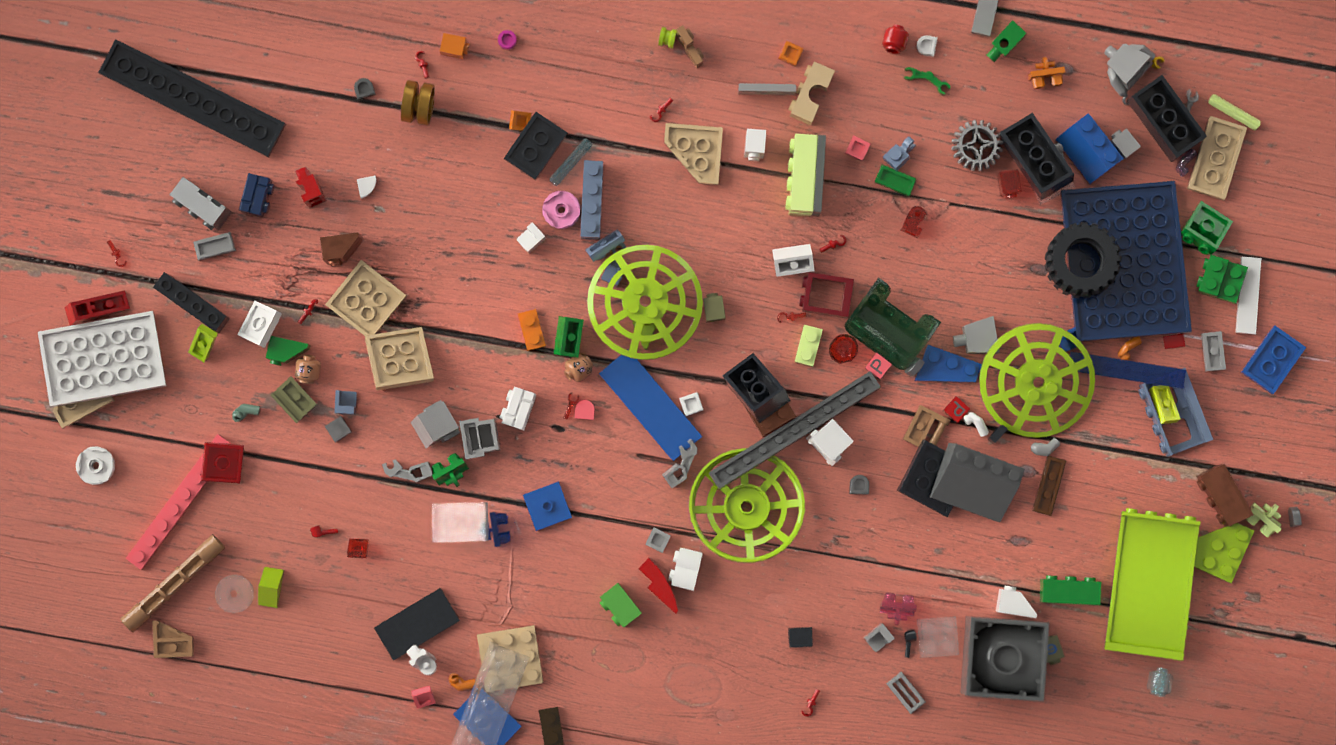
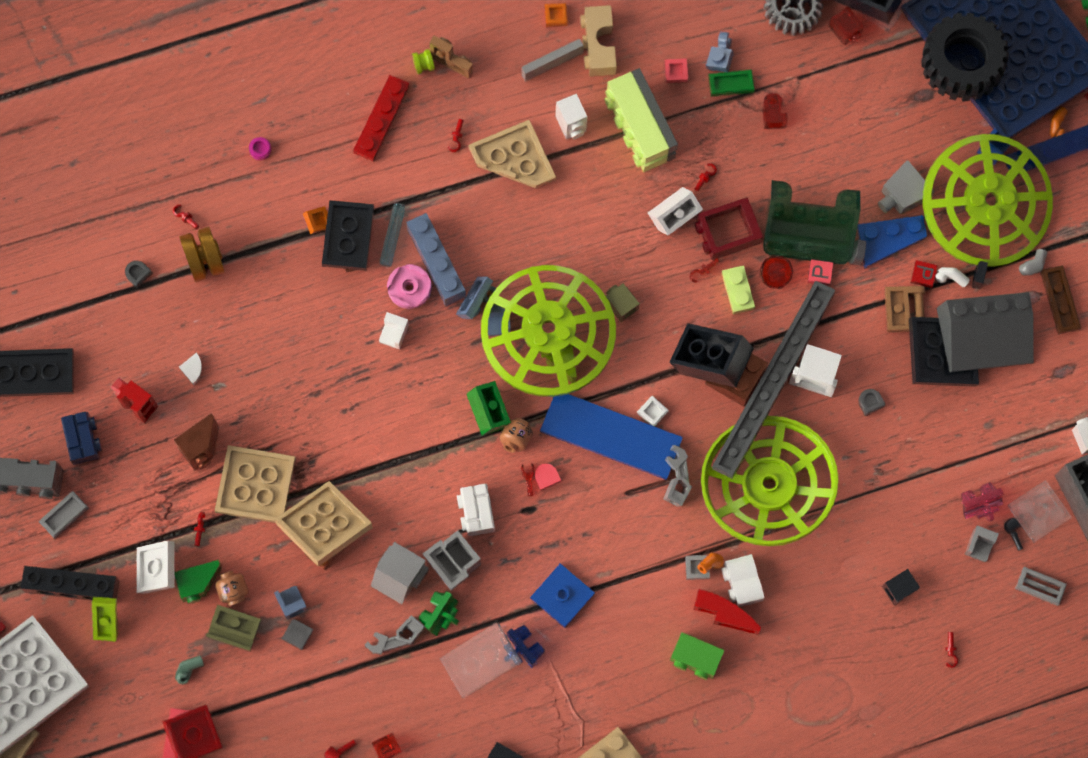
camera: 30 degrees left, 10 degrees down
(454, 46) = (208, 181): orange brick -> none
(531, 329) = (445, 424): orange plate -> none
(612, 64) = (381, 118): none -> red plate
(671, 542) = (713, 560): none -> orange arm

